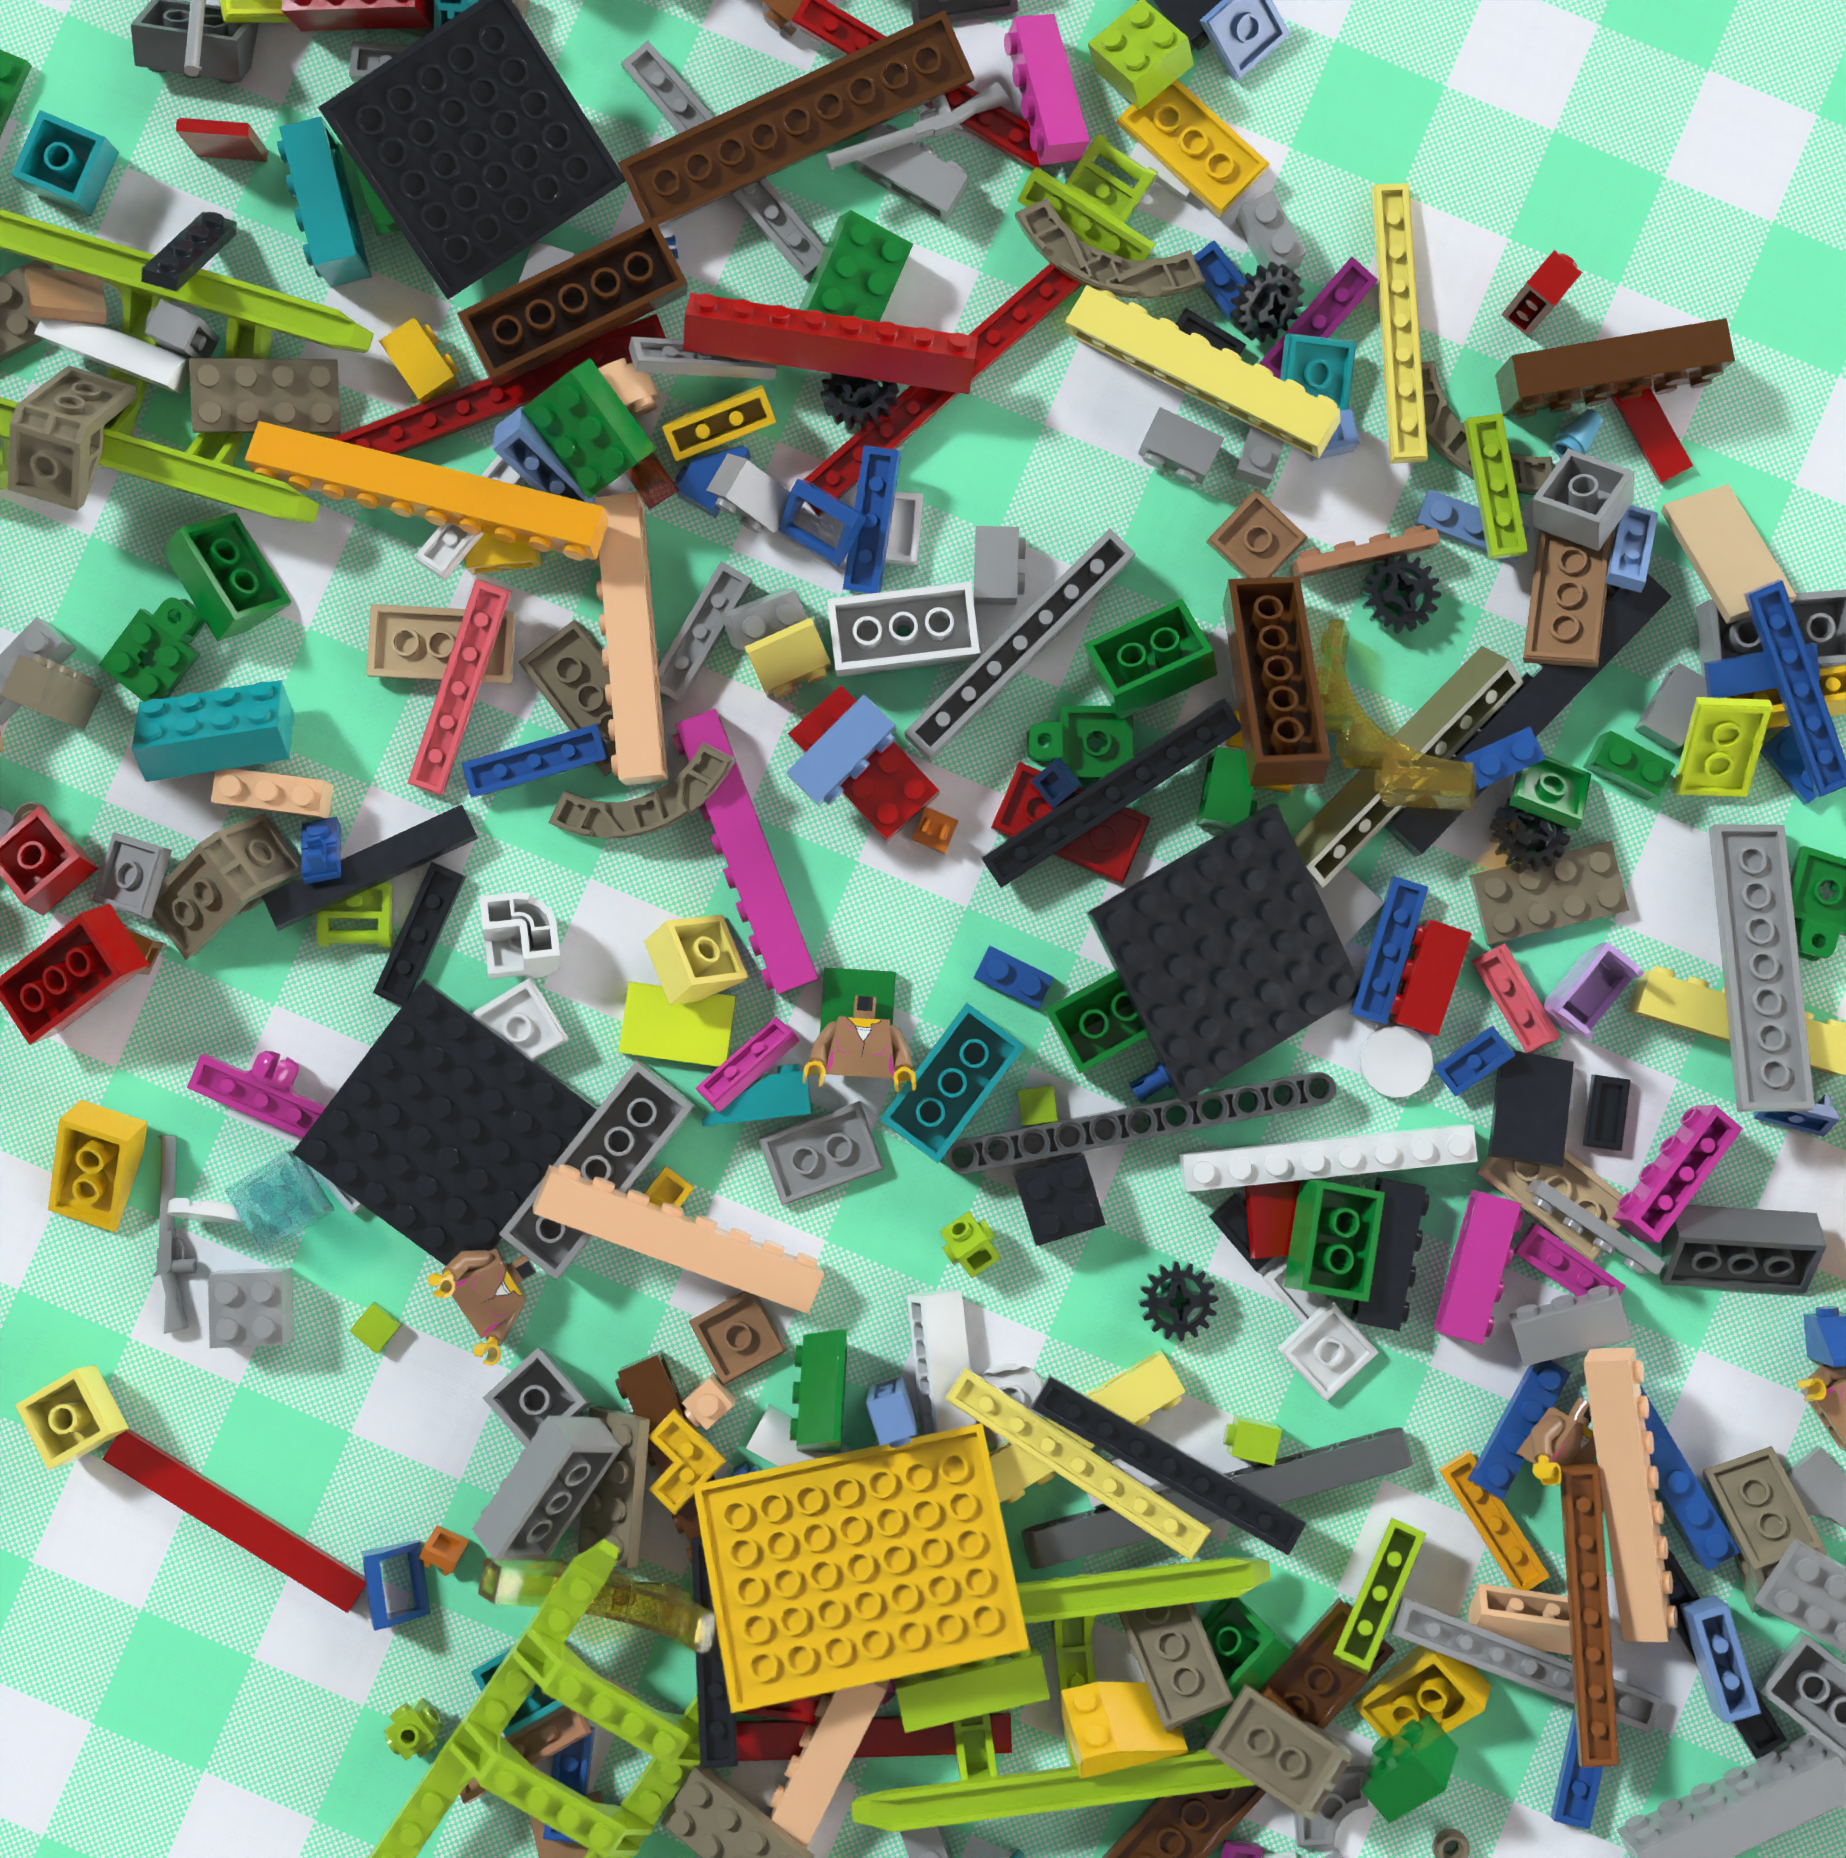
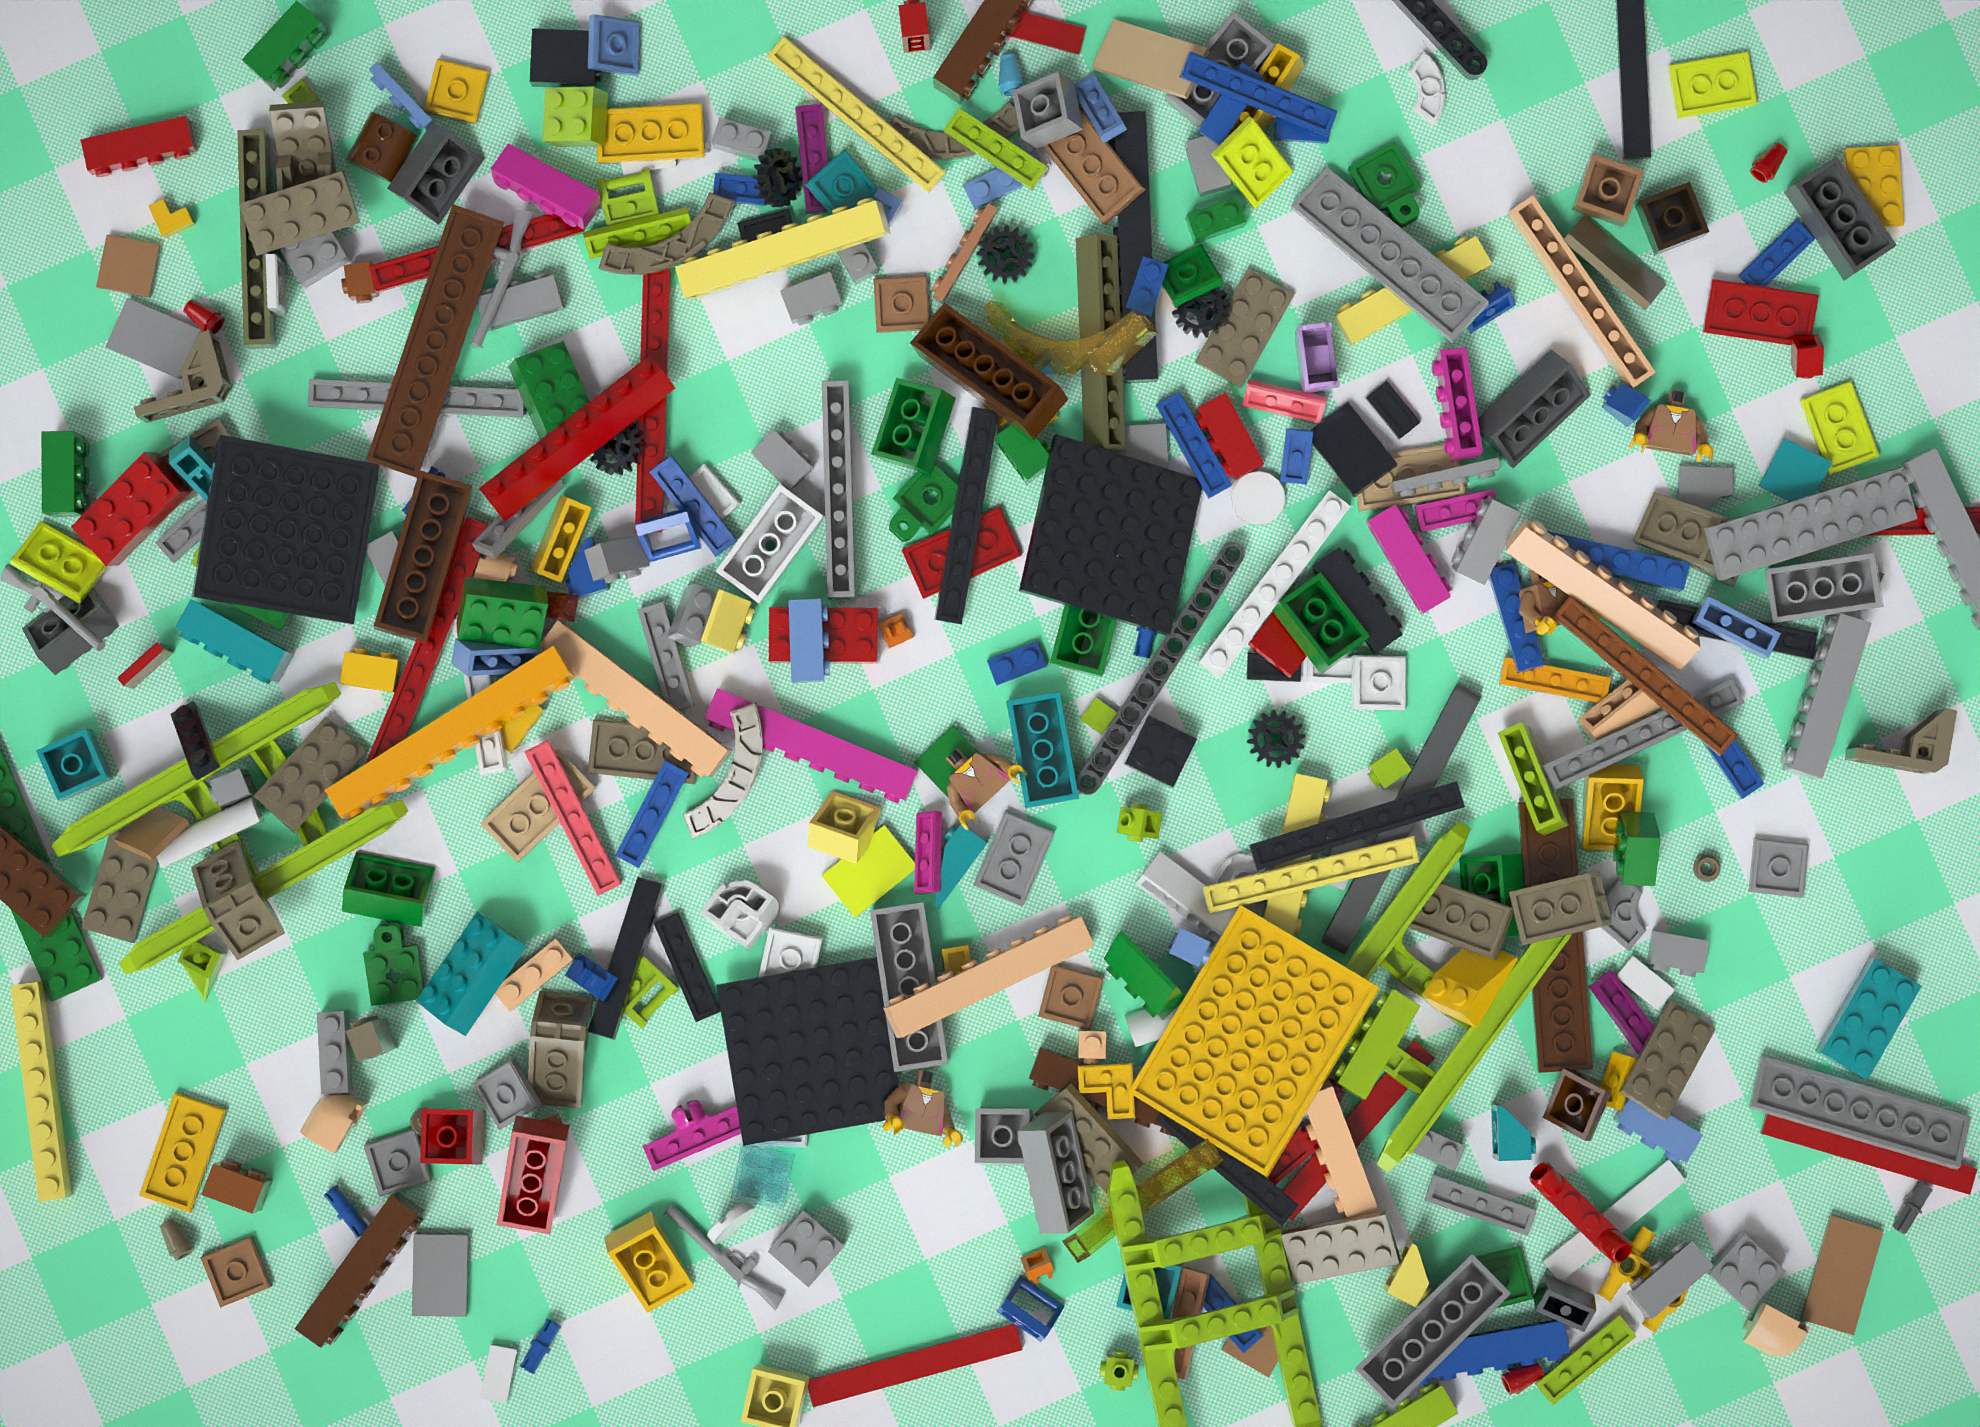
camera: 50 degrees left, 0 degrees up
(375, 1327) = (881, 1191): lime tile -> none
(1056, 782) = (932, 540): dark blue tile -> none

